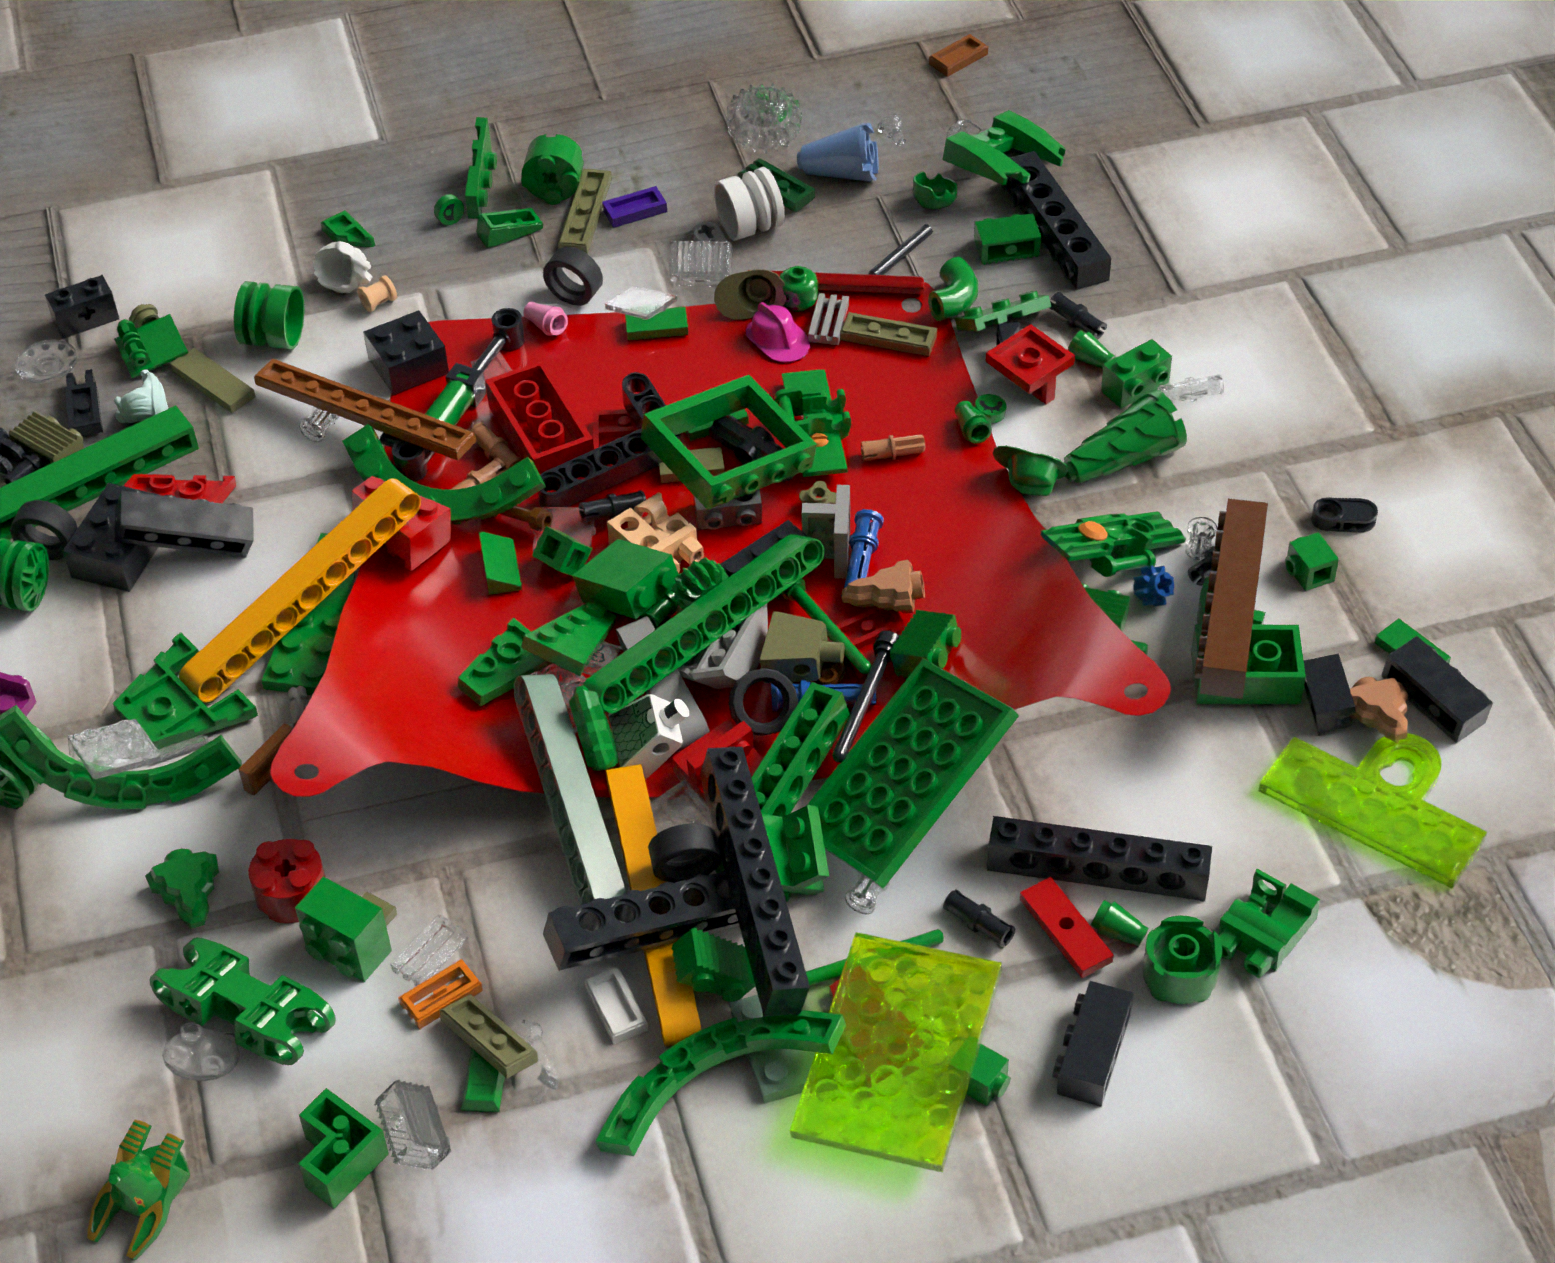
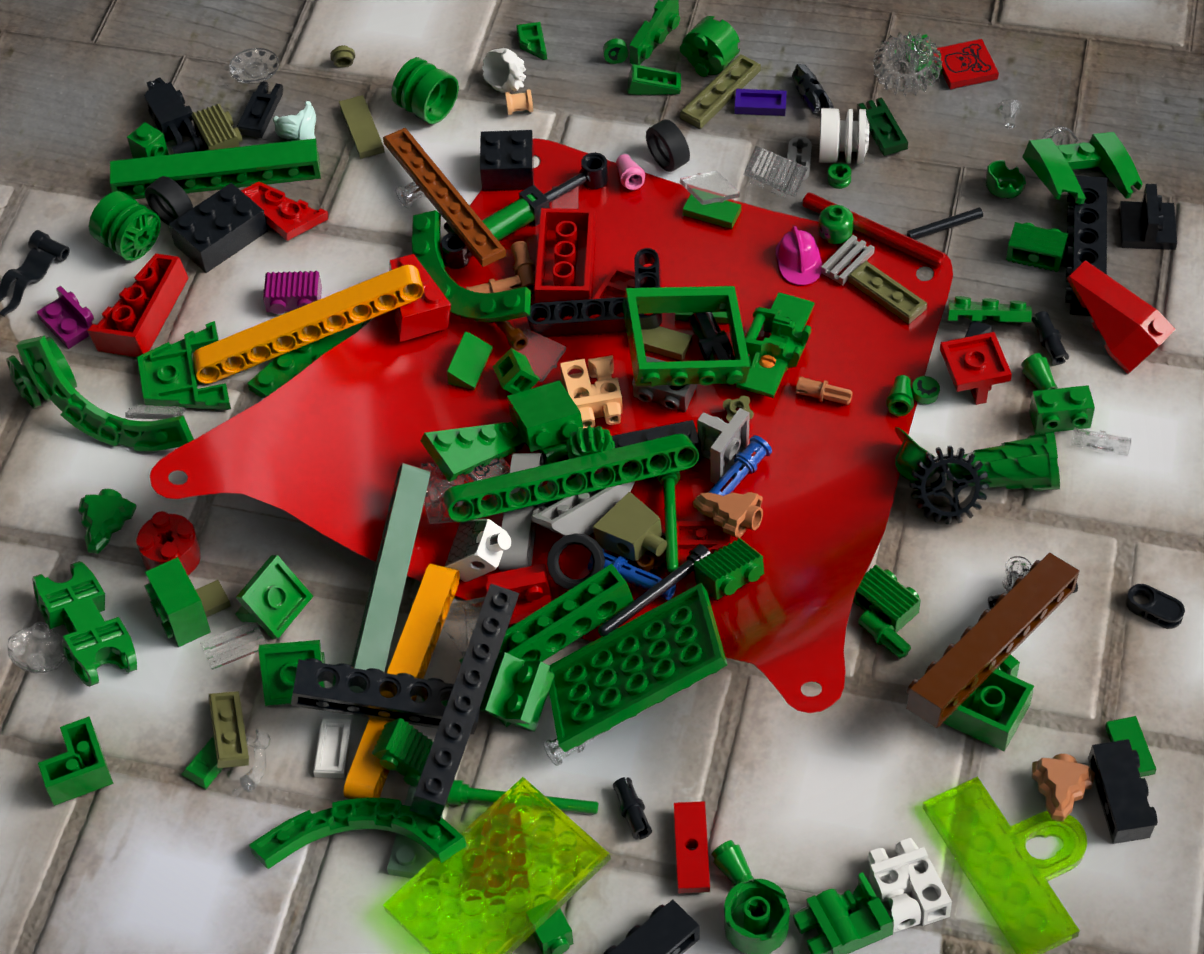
camera: 30 degrees right, 5 degrees up
(82, 306) = (304, 30): black brick -> none
(85, 654) = (142, 308): none -> red wedge
(113, 748) = (108, 394): clear bracket -> none
(149, 344) = (333, 80): green hinge -> none
(183, 524) = (259, 236): black brick -> none
(249, 569) = (290, 290): none -> magenta brick
(413, 1125) = (135, 771): clear brick -> none
(443, 995) = (201, 689): orange tile -> none
(447, 881) = (273, 597): none -> green bracket
(498, 668) = (406, 447): green wing -> none
(517, 945) = (279, 668): none -> green bracket
(593, 729) = (436, 530): green rock -> none
(609, 506) = (575, 350): black pin -> none
(681, 176) = (810, 89): none -> black hinge
(684, 852) = (433, 656): black tyre -> none
(741, 292) = (789, 210): olive piece -> none
(764, 245) = (841, 169): none -> green bush
(822, 101) = (967, 64): none -> red tile
(842, 155) = (950, 121): medium blue cone -> none
(958, 55) = (1111, 64): dark orange tile -> none
(959, 293) = (967, 279): green cylinder -> none
(1067, 462) = (961, 483): none -> black gear
(1094, 179) = (1148, 222): none -> black bracket
(1099, 858) = (752, 805): black brick -> none
(1124, 535) = (933, 535): green piece -> none
(1143, 268) = (1124, 319): none -> red wedge
(1153, 585) = (952, 605): blue gear -> none
(1304, 850) = (908, 874): none -> white hips
(1311, 561) = (1094, 634): green brick -> none
(1328, 693) = (1026, 752): black hinge -> none

